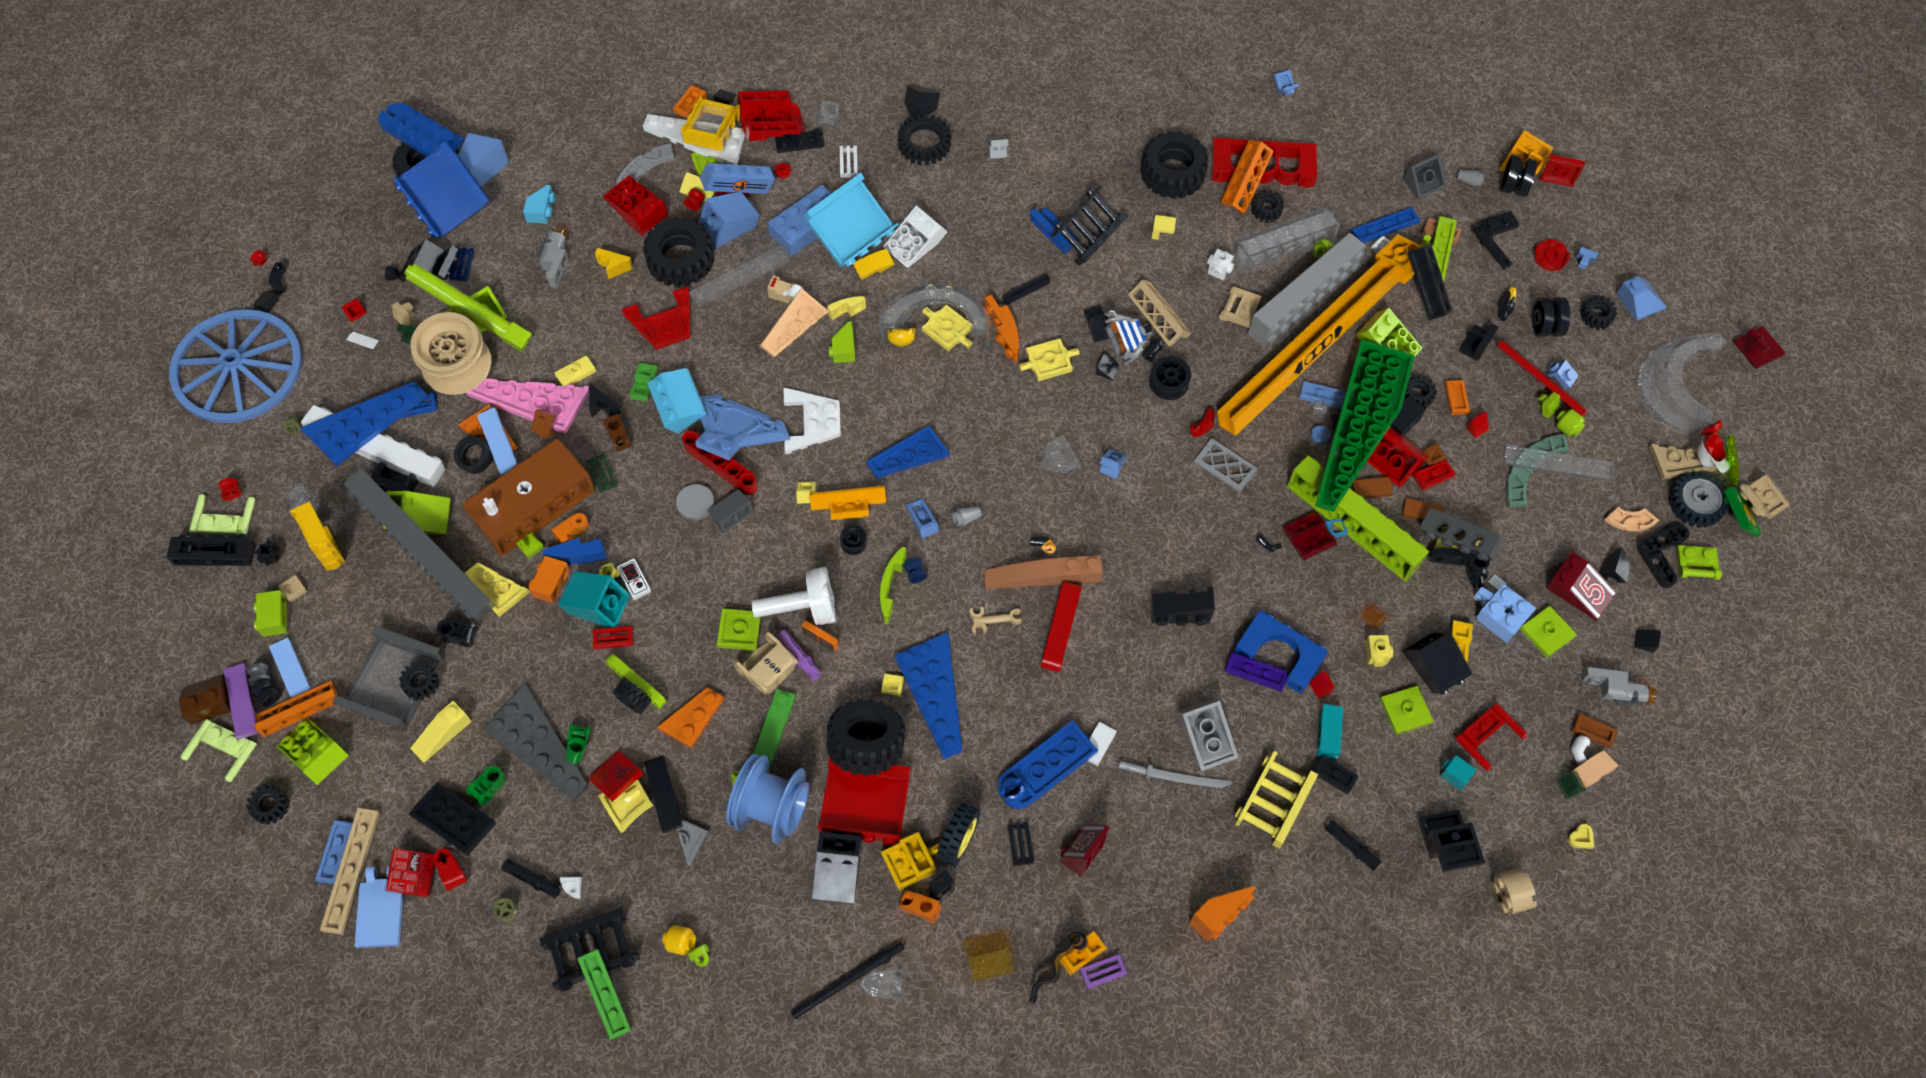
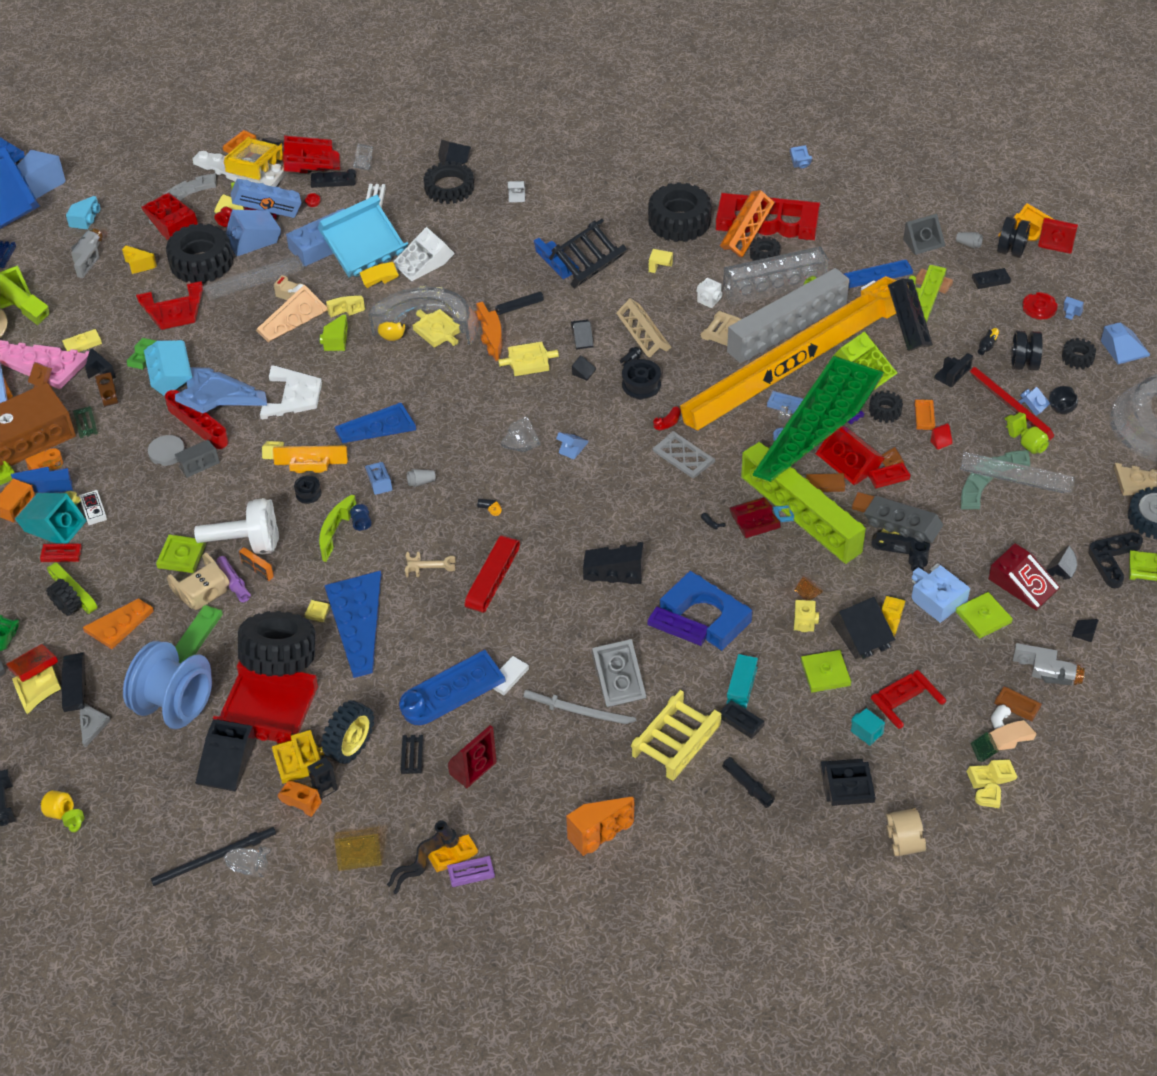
camera: 10 degrees right, 15 degrees down
(1046, 572) = (488, 527): nougat slope -> none
(1126, 335) = (605, 341): torso -> none
(1322, 685) = (742, 642): red slope -> none
(1408, 416) = (868, 424): black panel -> none
(1487, 241) = (977, 291): black pin -> none
(1581, 812) = (996, 772): none -> light yellow slope
(1592, 372) = (1063, 400): none -> black hair
(1631, 521) = (1086, 528): light nougat tile -> none

